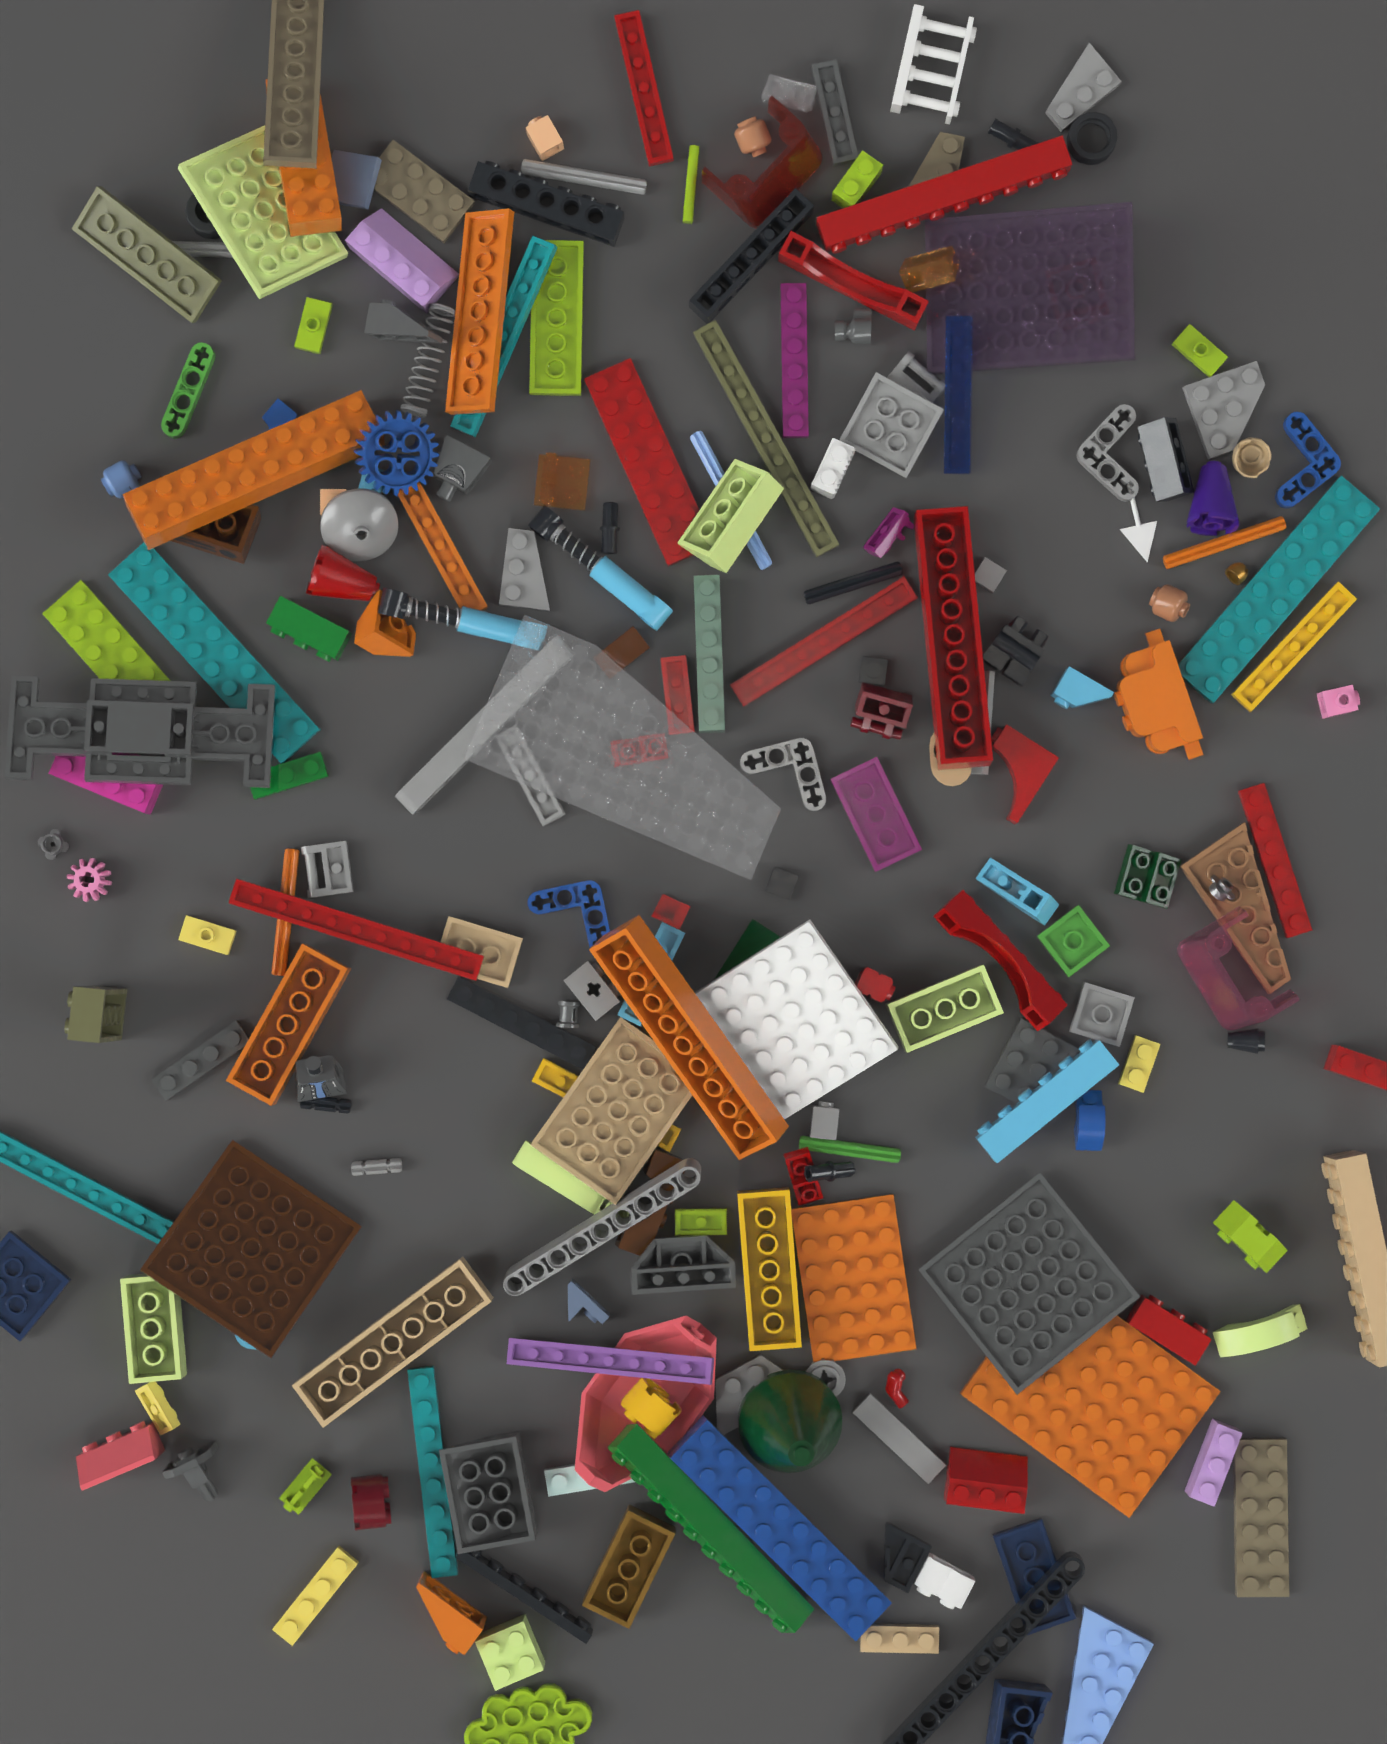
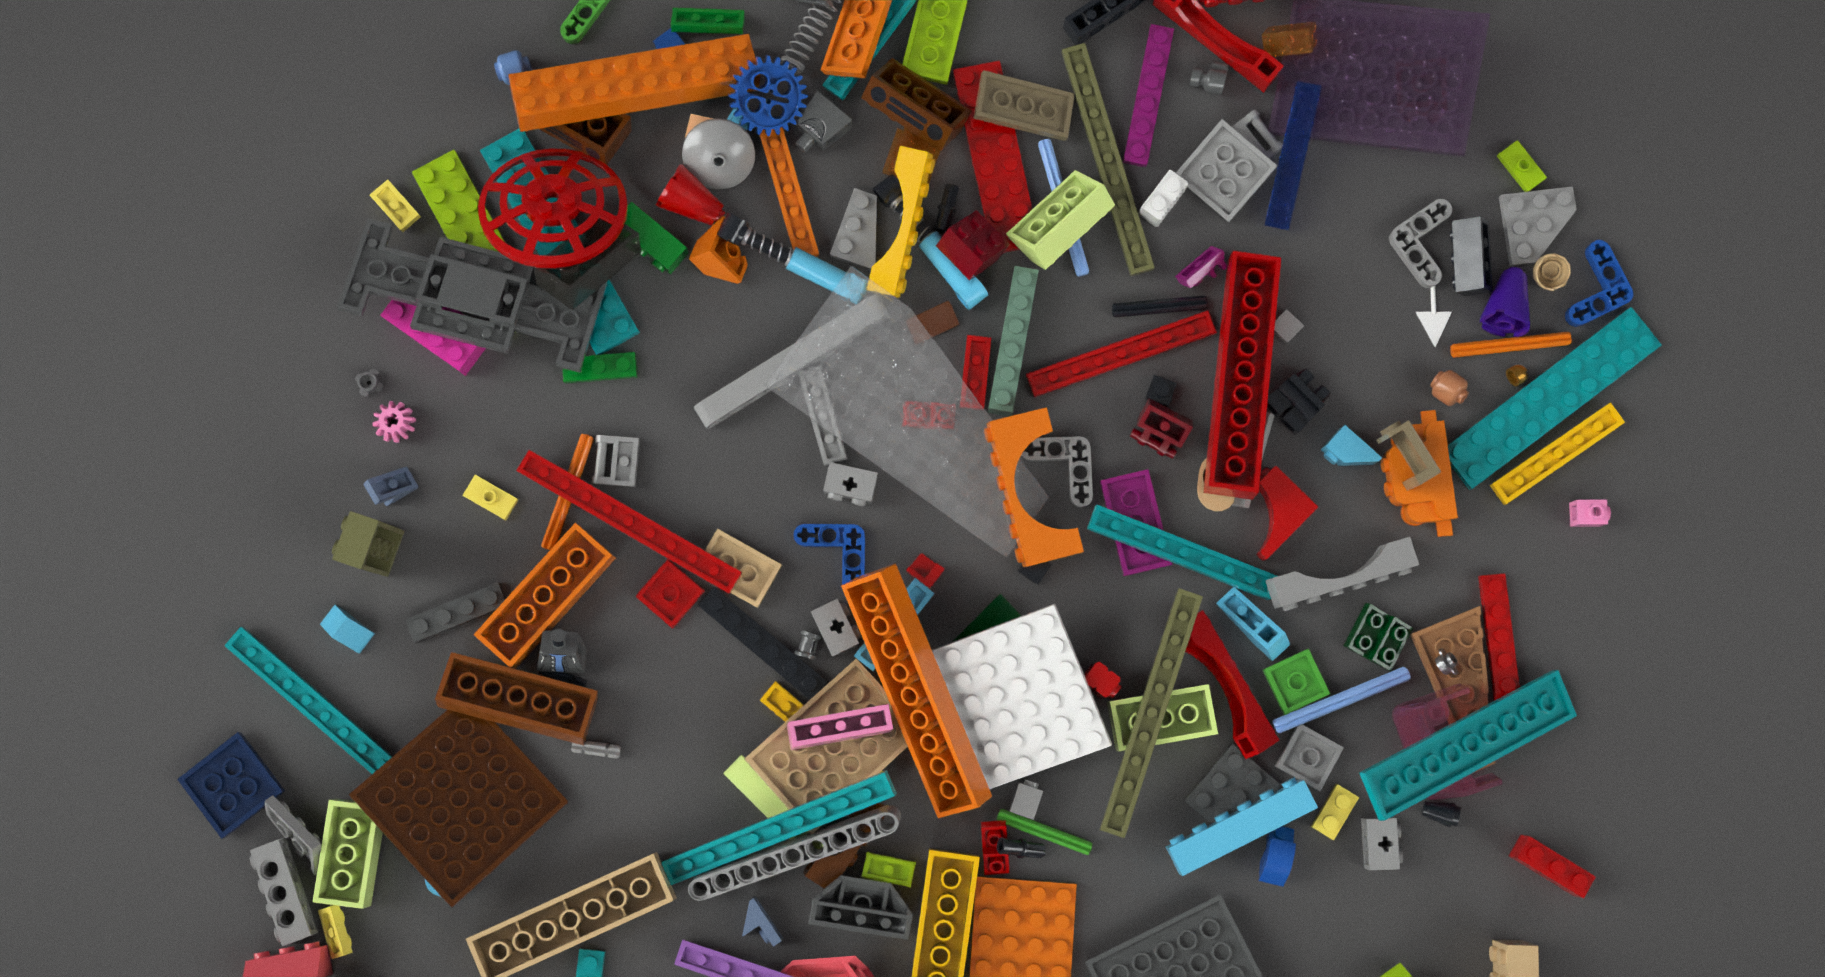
camera: 10 degrees right, 5 degrees down
(34, 653) = (395, 205): none -> light yellow plate
(85, 1313) = (289, 826): none -> light grey wing
(93, 1102) = (346, 629): none -> medium azure slope
(97, 1365) = (295, 899): none -> light grey brick
(103, 947) = (391, 486): none -> sand blue slope
(204, 630) = (552, 214): none -> red dish
(250, 668) = (577, 282): none -> clear smoke brick
(285, 1135) = (516, 698): none -> dark orange brick
(314, 383) = (707, 20): none -> green plate
(415, 993) = (670, 593): none -> red tile
(553, 426) = (916, 104): none -> reddish brown brick
(565, 500) = (912, 171): none -> yellow arch
(581, 1205) = (779, 827): none -> teal plate
(588, 832) = (863, 479): none -> light grey brick
(619, 1091) = (839, 727): none -> bright pink brick
(645, 563) = (972, 244): none -> dark red brick
(666, 402) = (1024, 105): none -> dark tan plate
(727, 760) = (1034, 540): none -> orange arch
(929, 835) = (1180, 551): none -> teal plate
(931, 1007) = (1151, 713): none -> olive plate
(1122, 949) = (1341, 700): none -> light blue axle
(1142, 794) = (1388, 559): none -> light grey arch
(1144, 683) = (1413, 452): none -> dark tan panel
(1181, 1076) = (1383, 857): none -> light grey brick
(1257, 968) = (1467, 745): none -> teal plate

